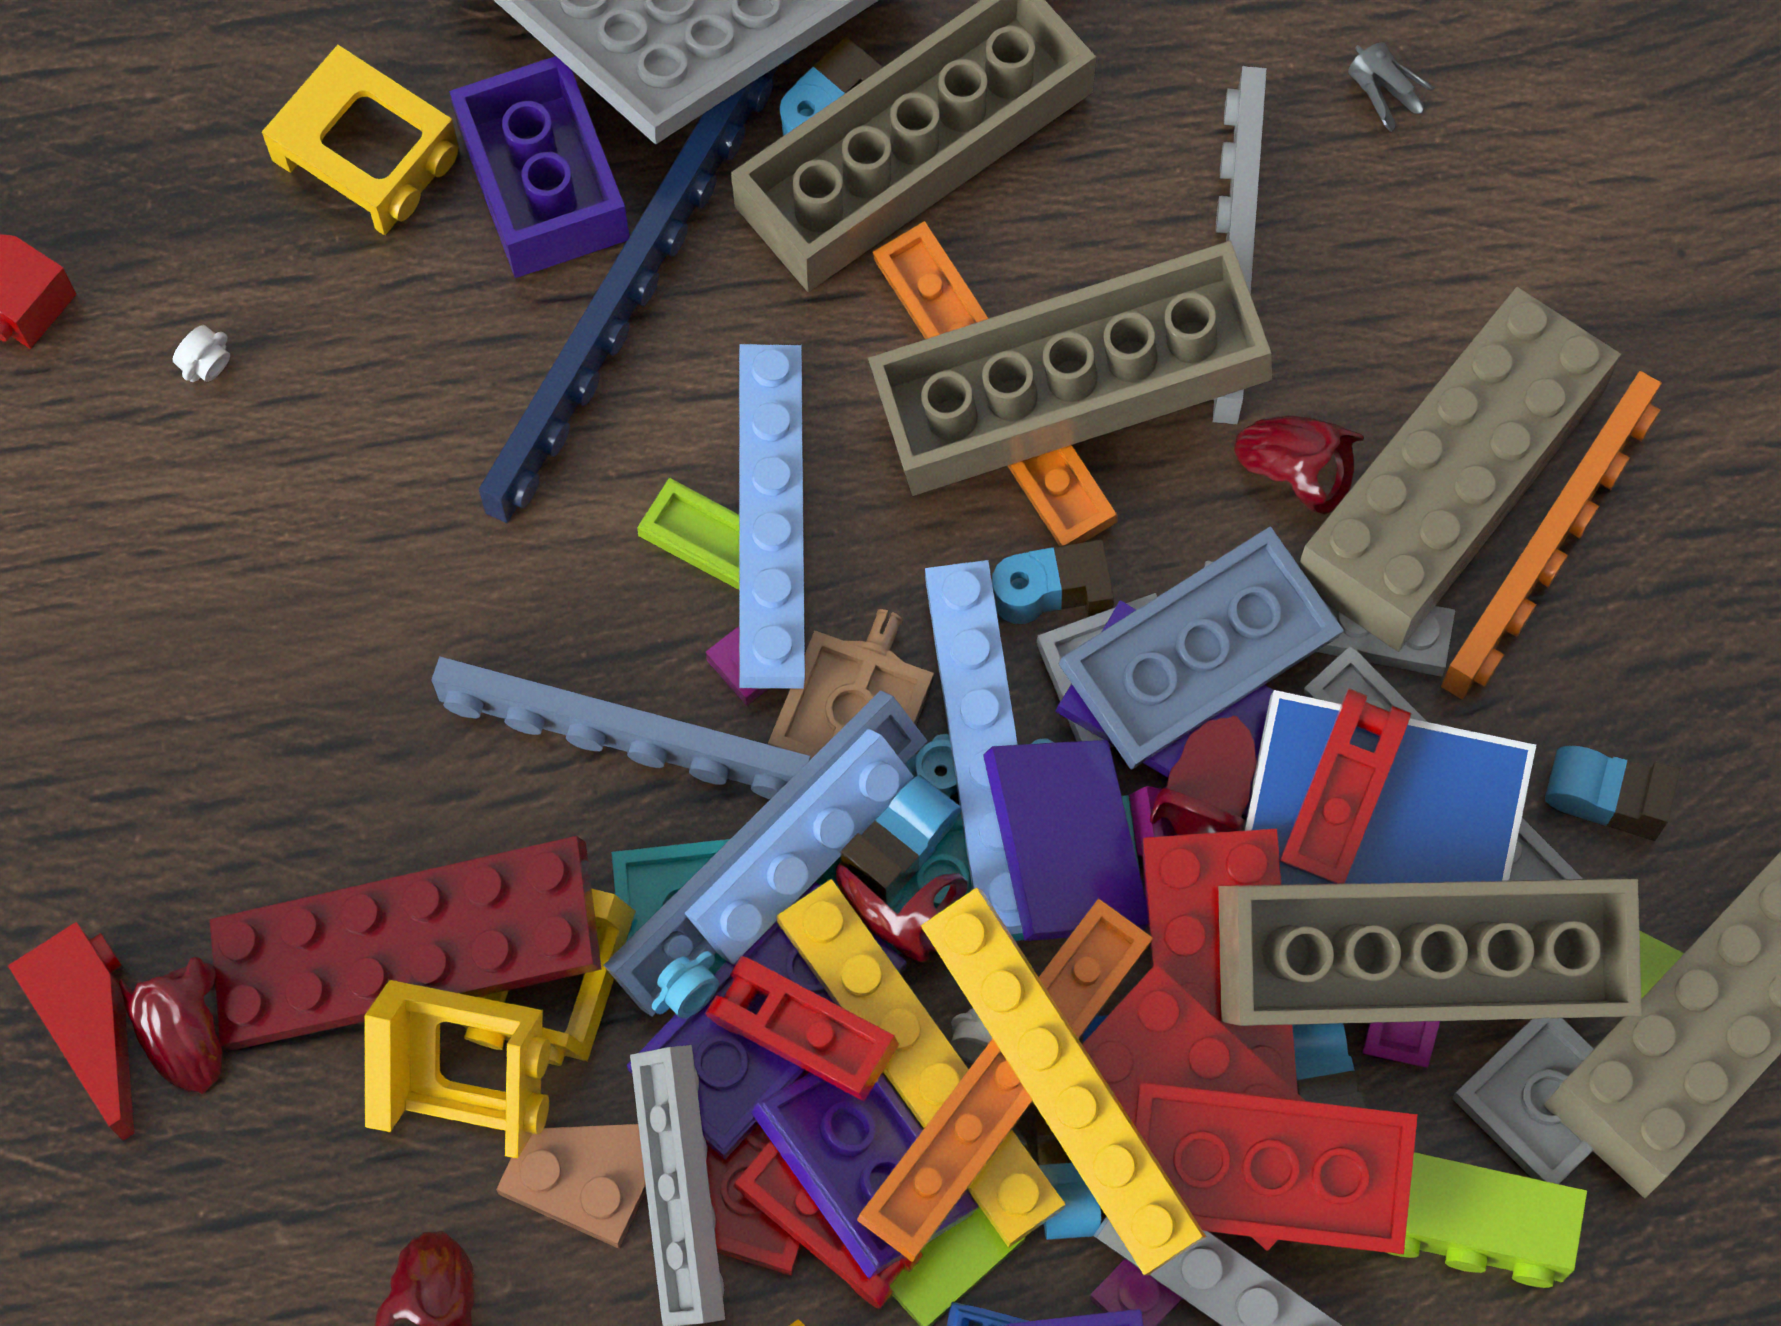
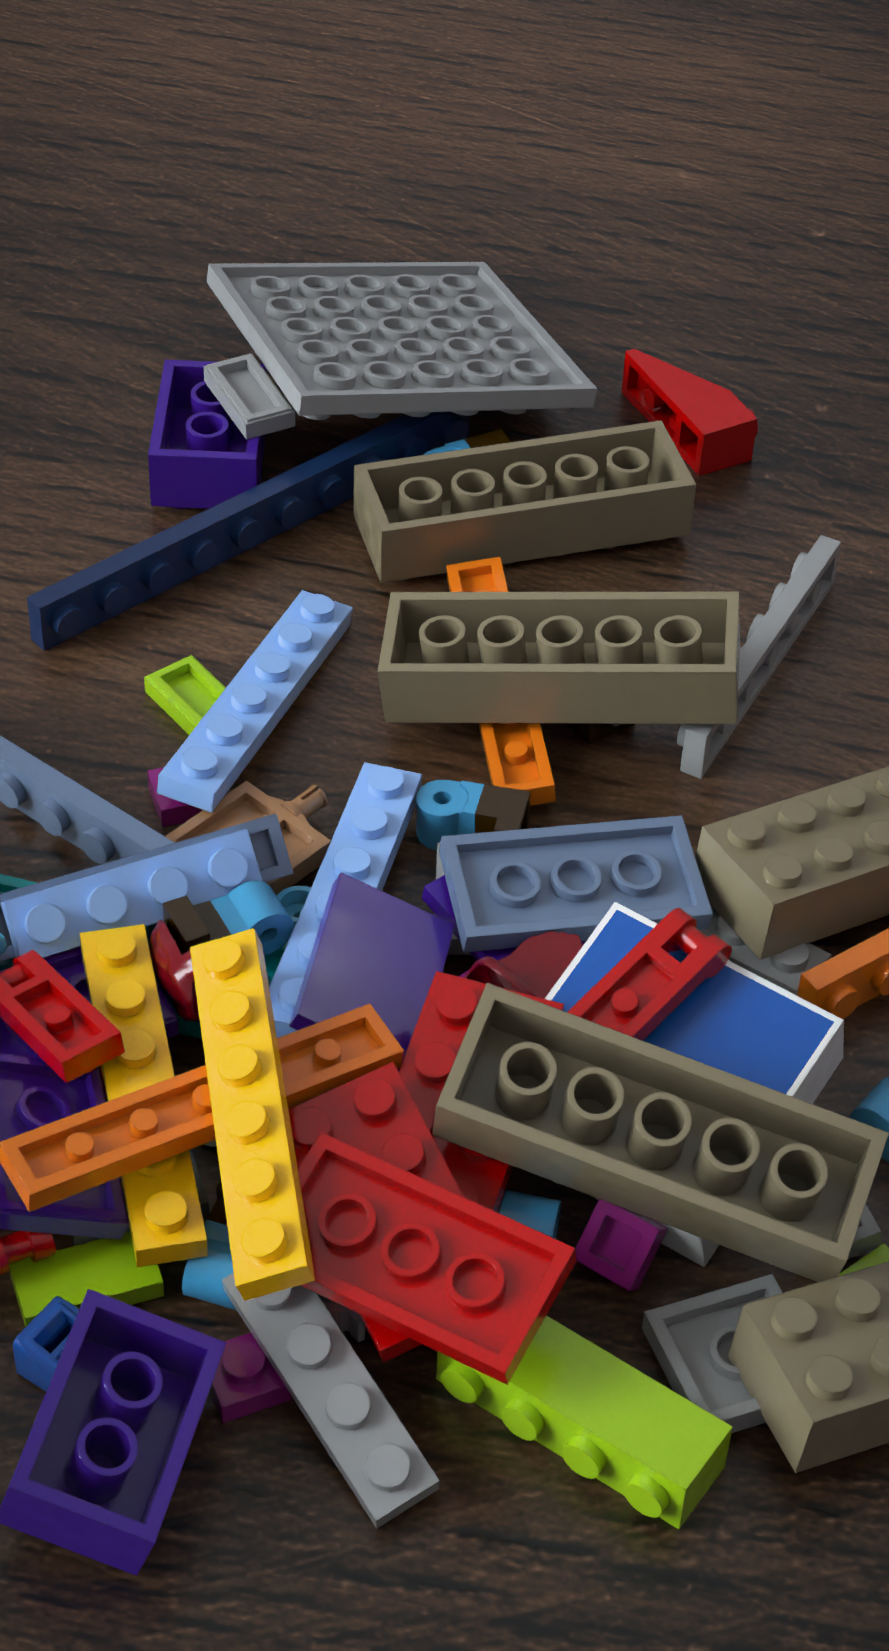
camera: 20 degrees right, 25 degrees down
(299, 127) = (76, 358): yellow window -> none
(574, 118) = (249, 396): none -> light grey tile
(1295, 452) = (736, 785): dark red piece -> none

